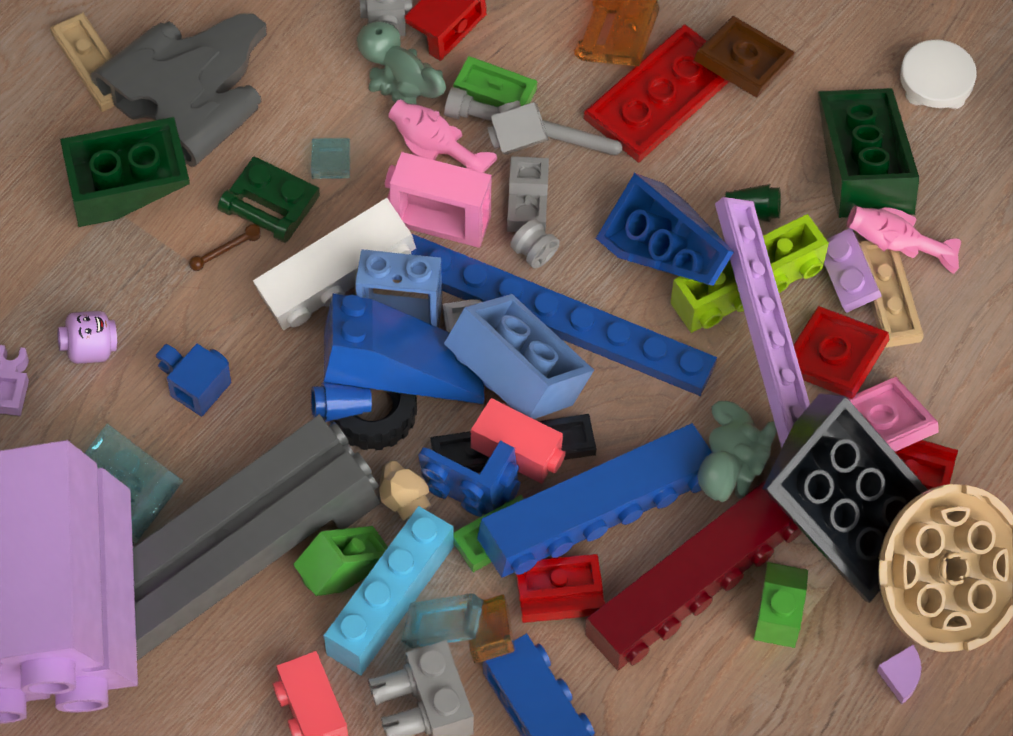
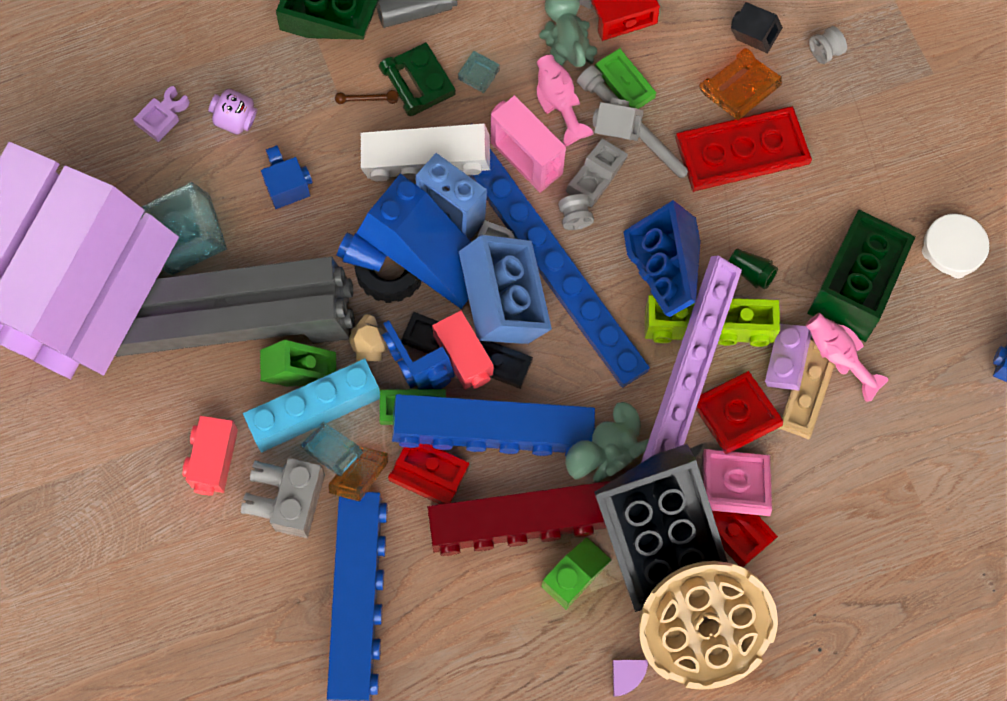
camera: 30 degrees right, 10 degrees up
(744, 56) = (819, 154): reddish brown tile -> none

